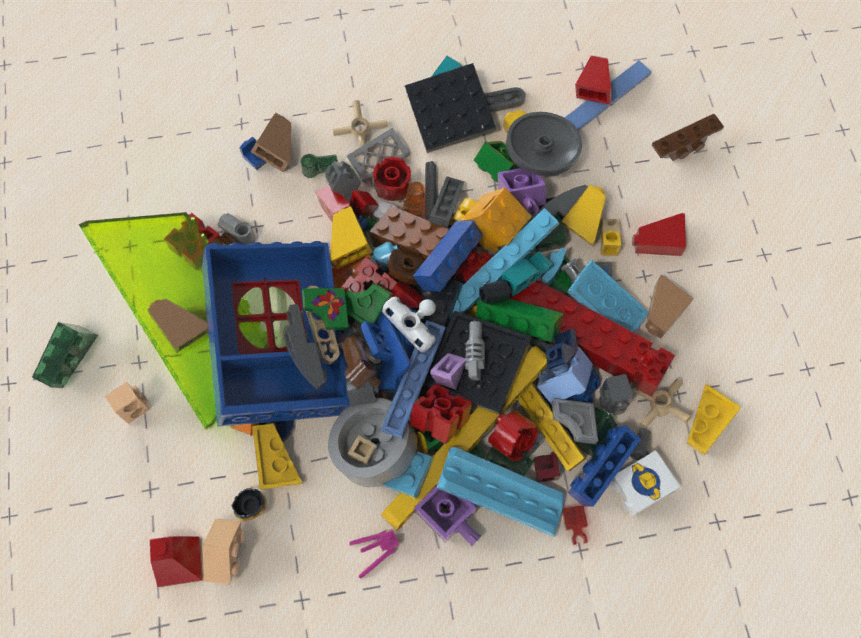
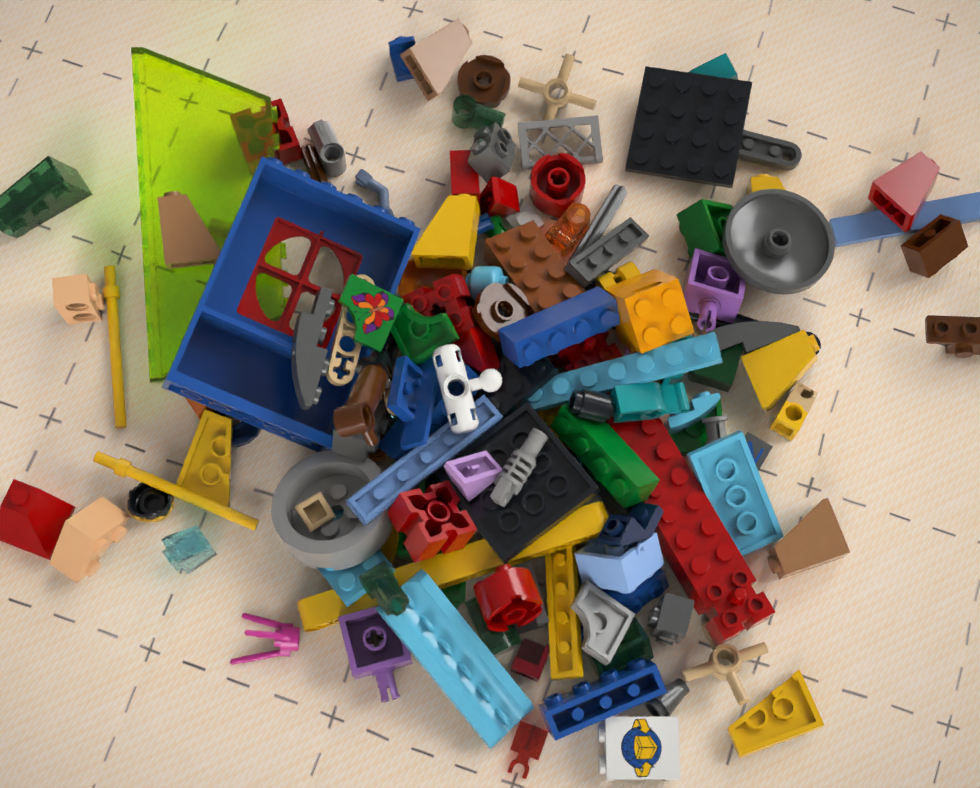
camera: 25 degrees right, 5 degrees up
(148, 390) = (111, 295): none -> yellow bar
(219, 492) = (124, 468): none -> yellow bar
(271, 237) = (366, 181): none -> sand blue arm
(291, 520) = (187, 549): none -> clear light blue slope
(312, 133) = (497, 75): none -> reddish brown plate
(432, 469) = (383, 586): none -> clear green piece
(630, 103) = (934, 246): none -> reddish brown brick
(662, 237) = (863, 448): red slope -> none

